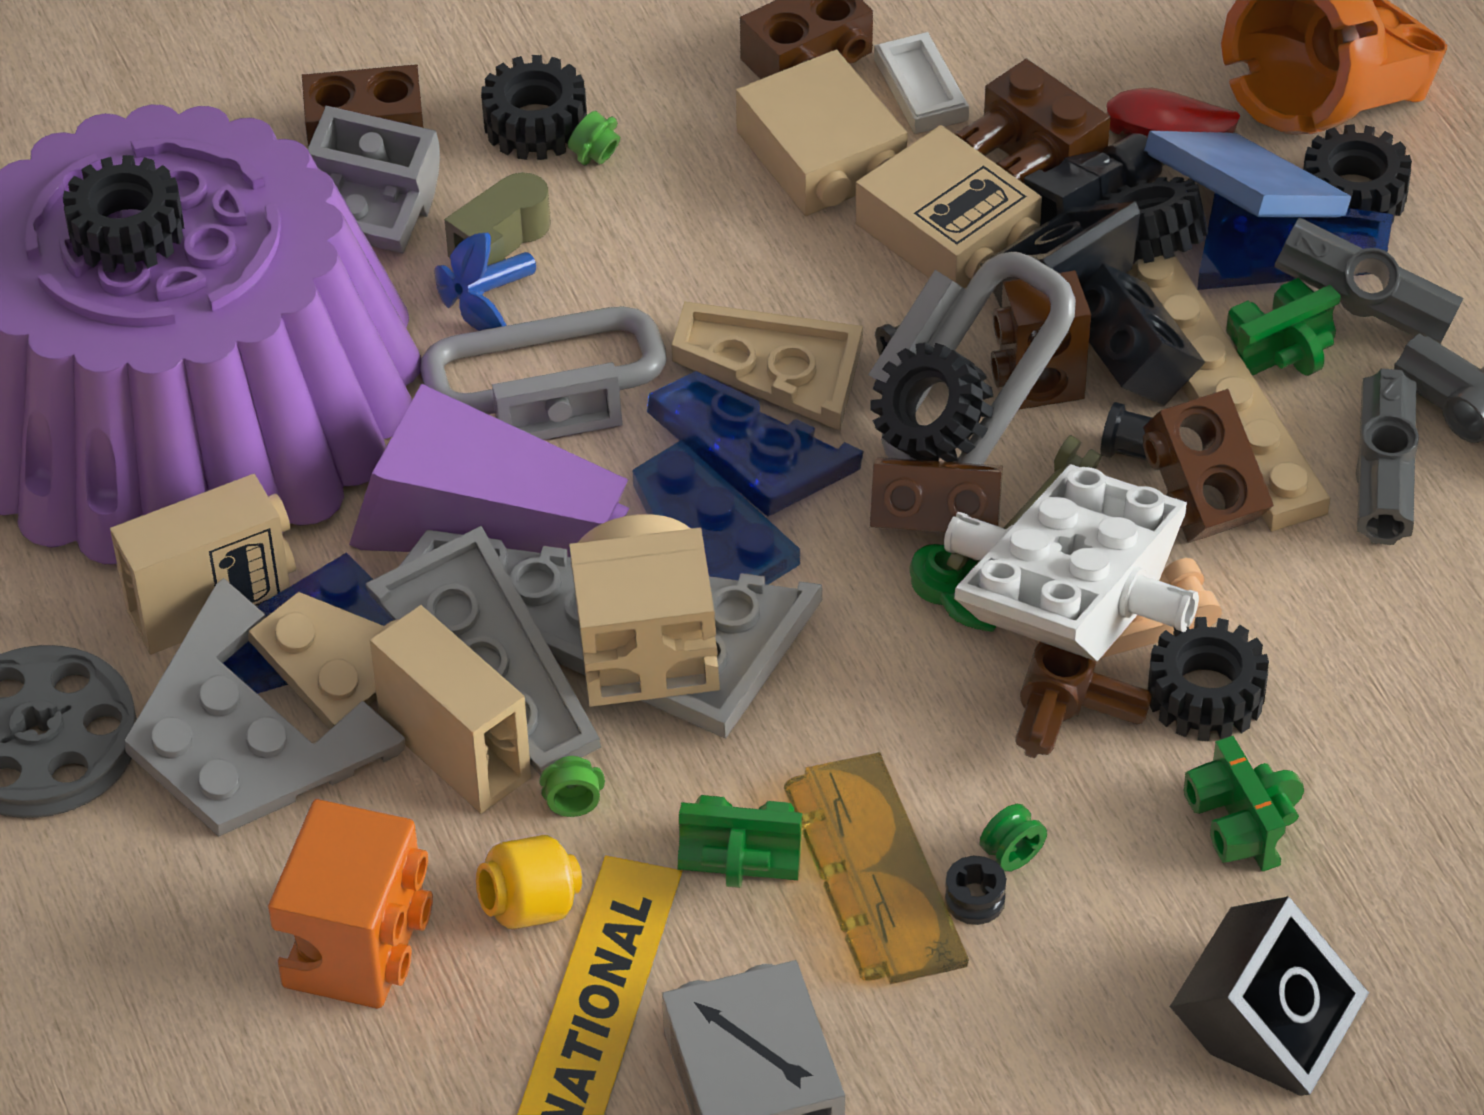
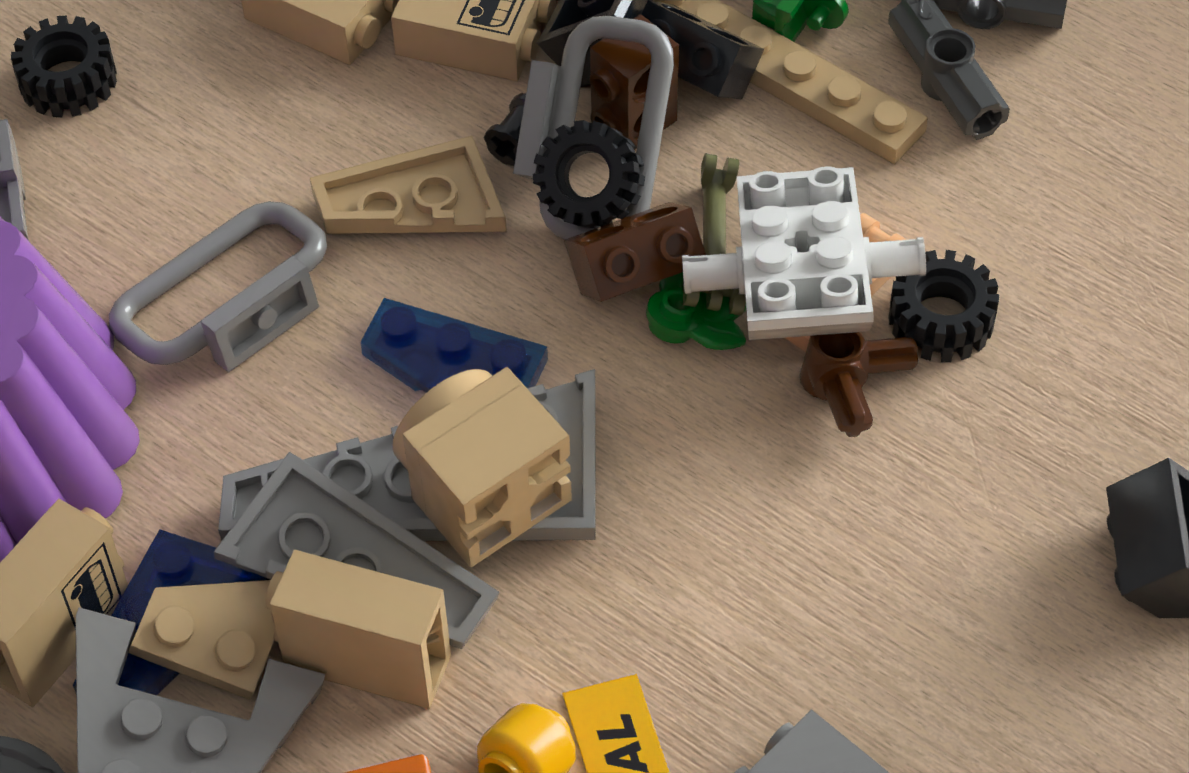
camera: 30 degrees left, 5 degrees up
(469, 470) = (247, 408): medium lavender slope -> none
(473, 277) = (114, 228): blue plant -> none
(510, 211) = (98, 180): olive leg -> none
(572, 786) = (499, 646): bright green plate -> none
(594, 138) = (134, 72): bright green plate -> none
(740, 839) = (677, 625): green hips -> none
(748, 449) = (452, 280): clear blue wing -> none
(875, 871) = (809, 596): clear yellow windscreen -> none
(992, 883) = (891, 555): black bush -> none
(1013, 837) = (891, 511): green bush -> none
(1123, 433) = (750, 131): black bush -> none
(1223, 463) = (838, 124): reddish brown brick -> none
(1256, 799) = (1052, 392): green hips -> none

